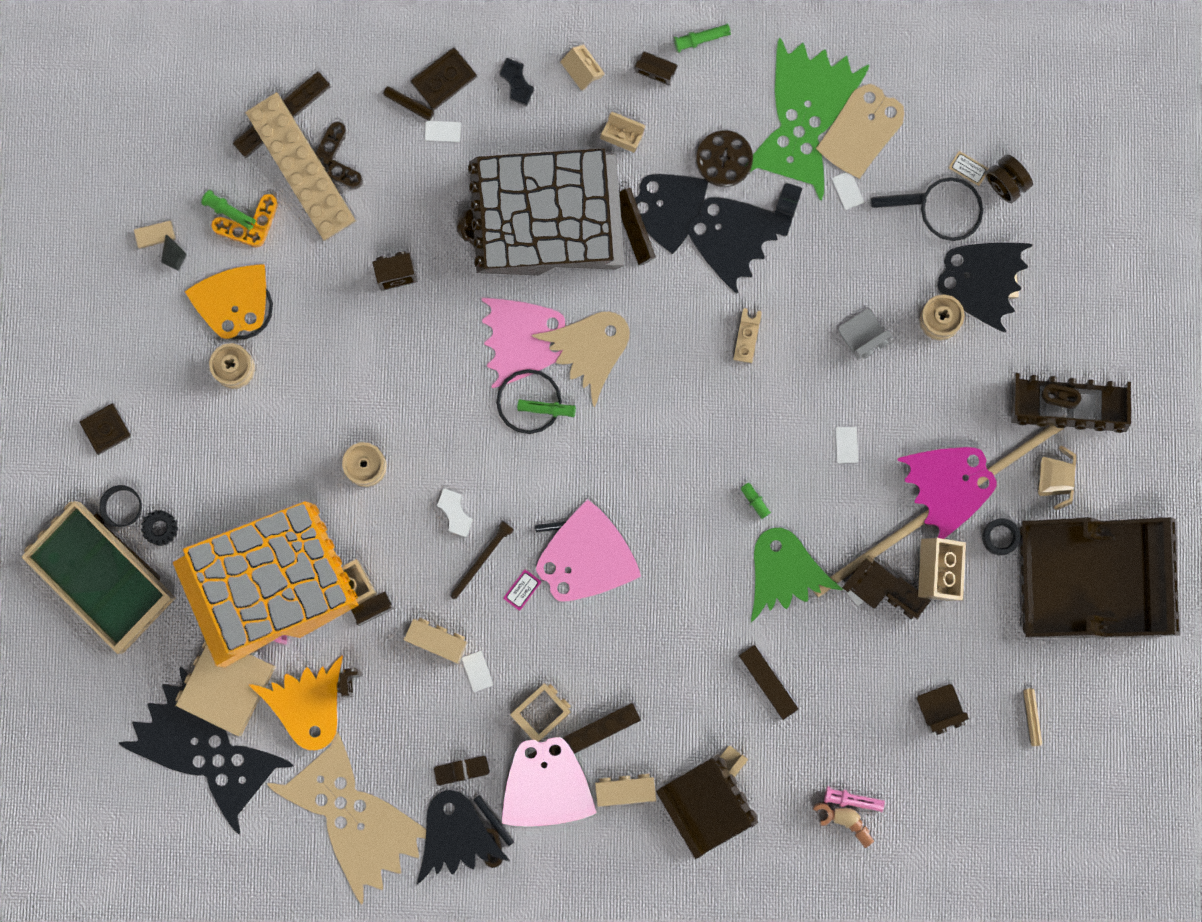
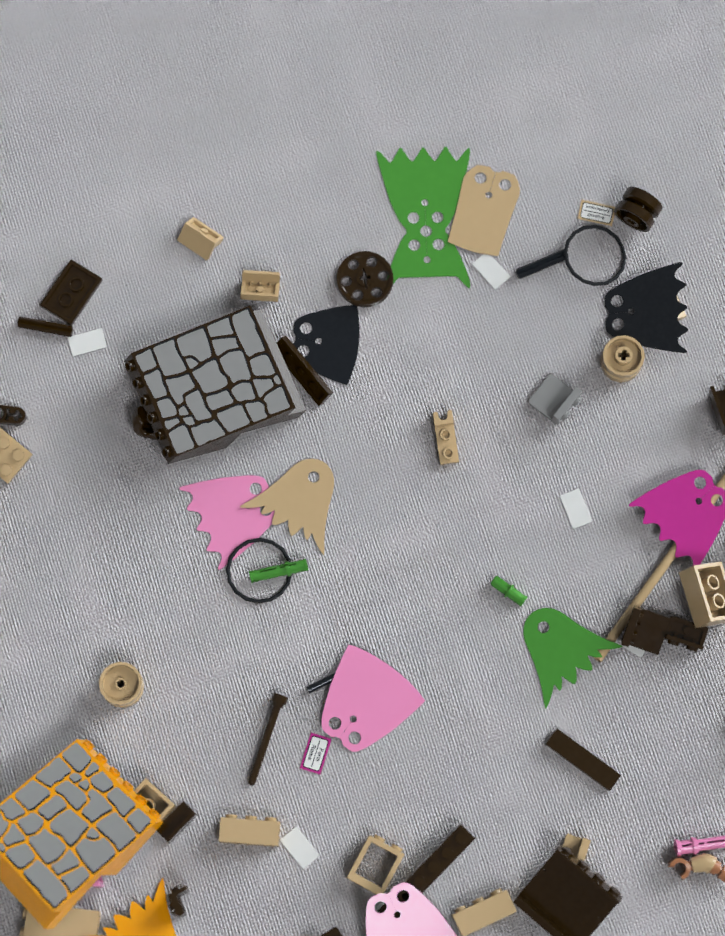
camera: 25 degrees left, 5 degrees down
(394, 271) = (87, 489): dark brown brick -> none
(451, 504) = (232, 709): white tile -> none
(520, 90) = (149, 279): black tile -> none
(656, 68) = (270, 216): dark brown panel -> none
(693, 39) = (296, 178): bright green pin -> none
(738, 241) = (405, 349): black piece -> none
(786, 207) = (439, 307): black piece -> none

